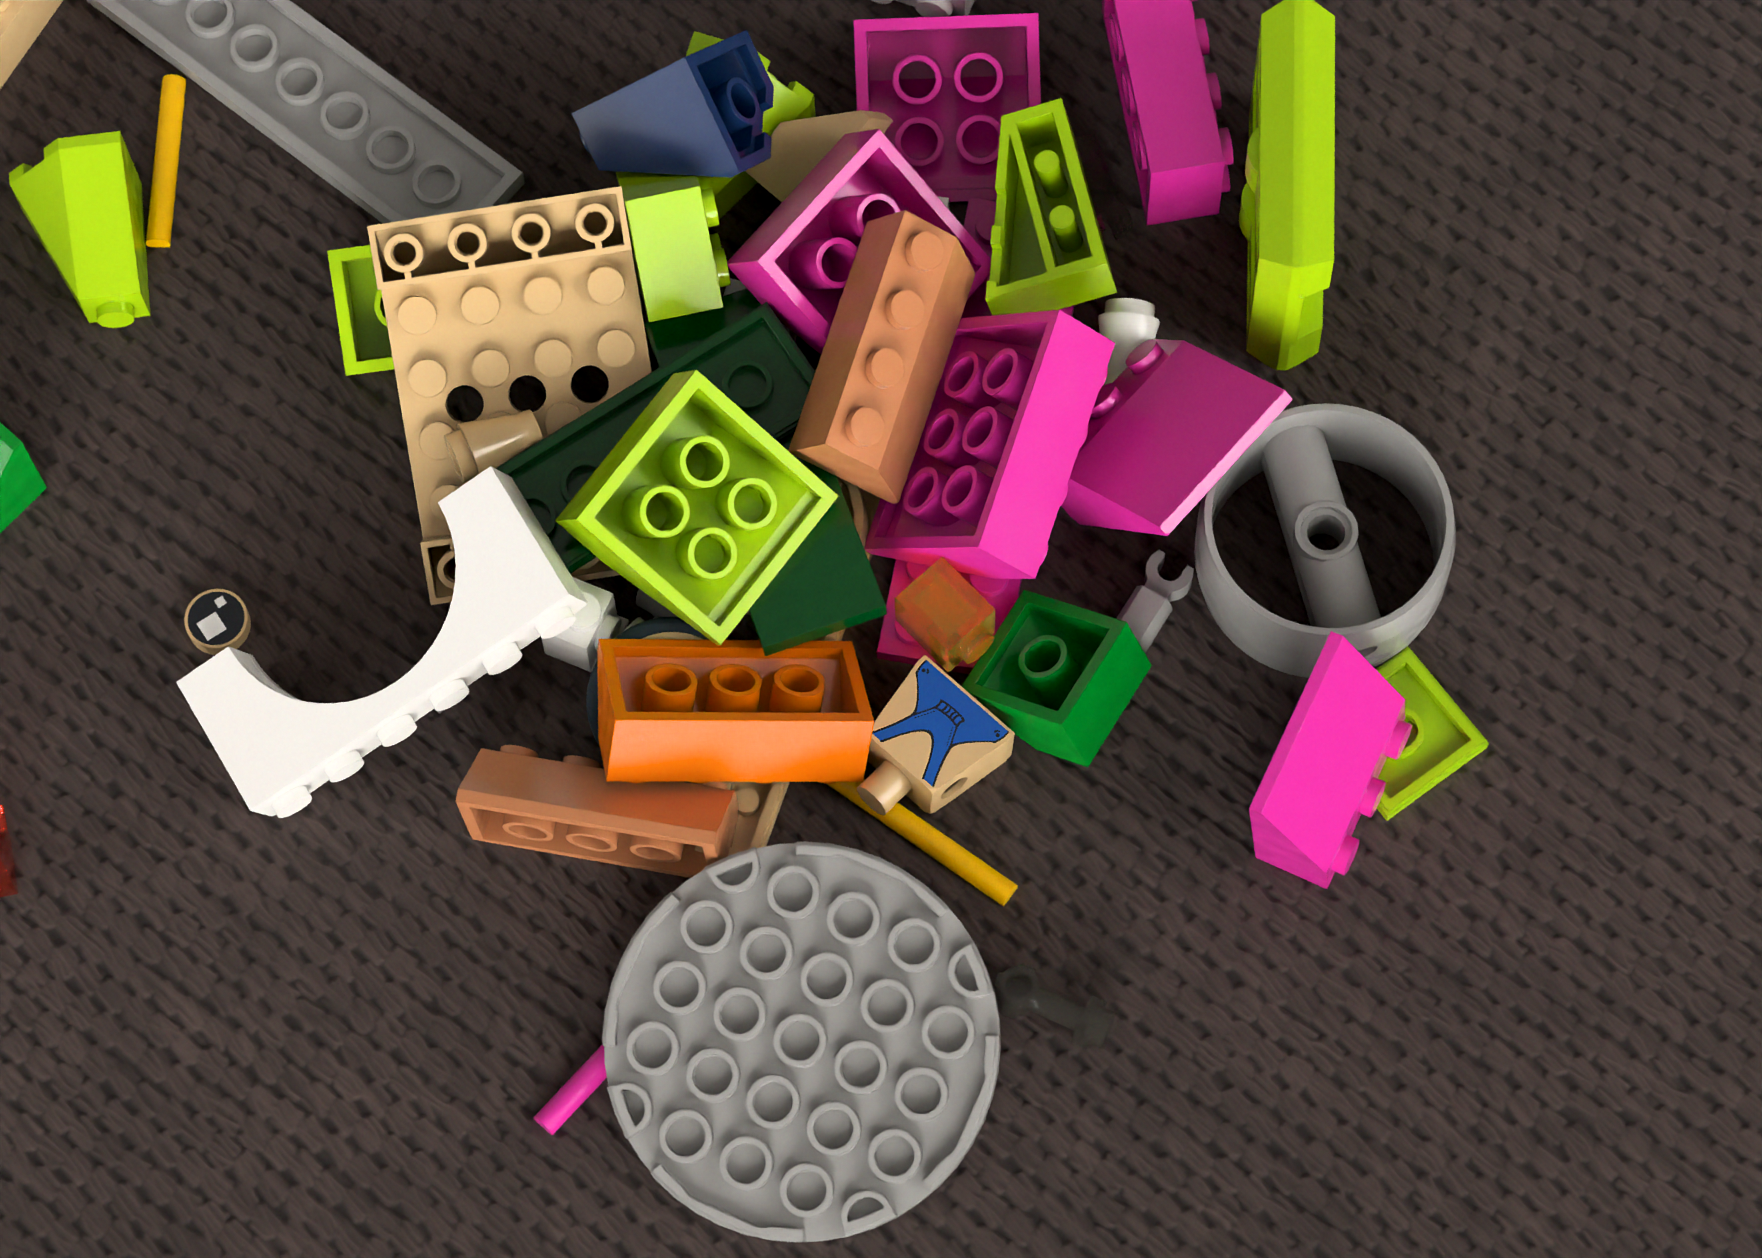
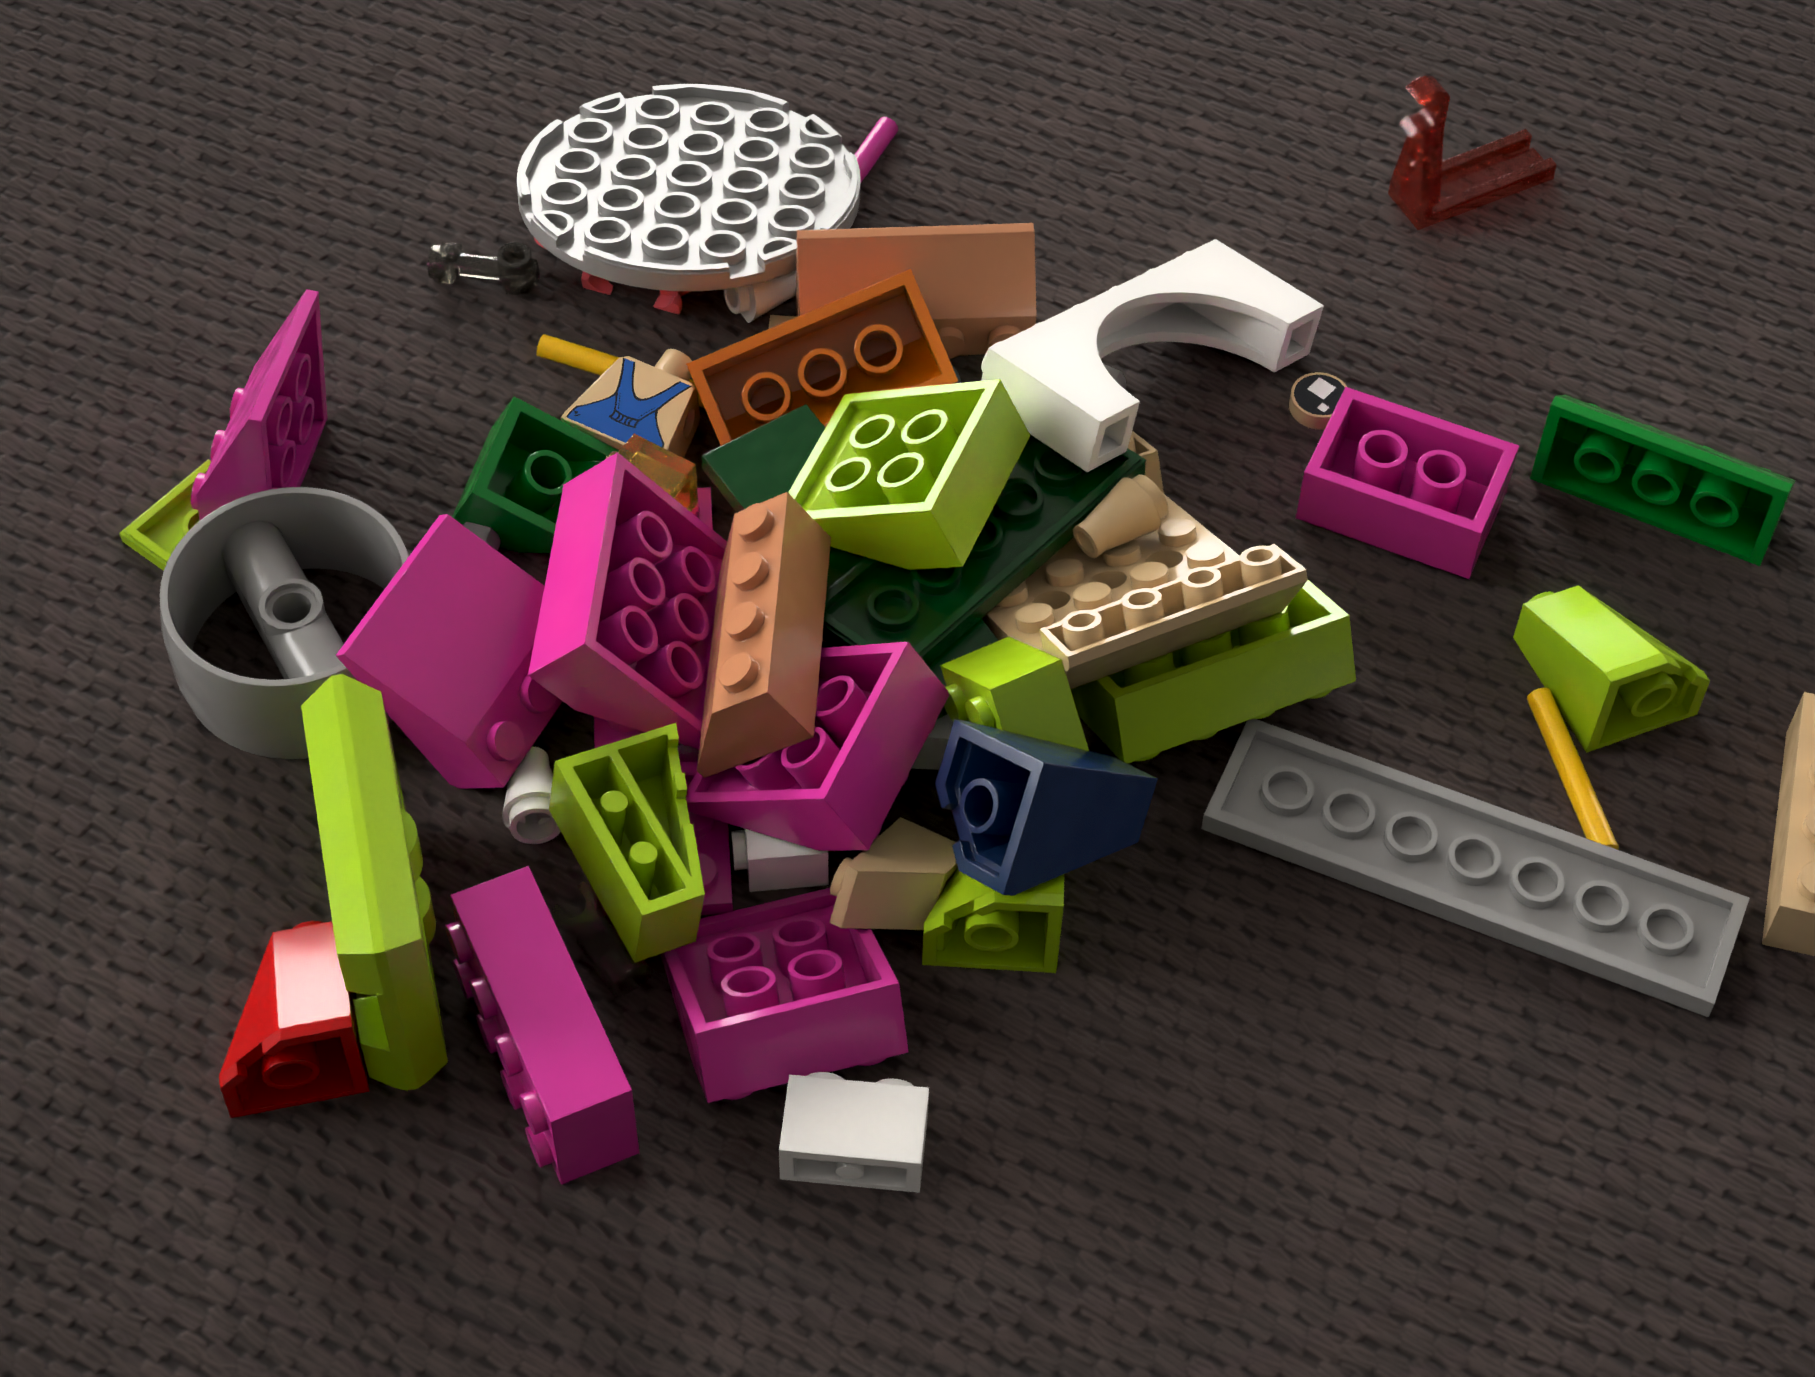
camera: 160 degrees right, 15 degrees down
(183, 465) = (1406, 482): none -> dark pink brick
(1380, 148) = (296, 1029): none -> red slope

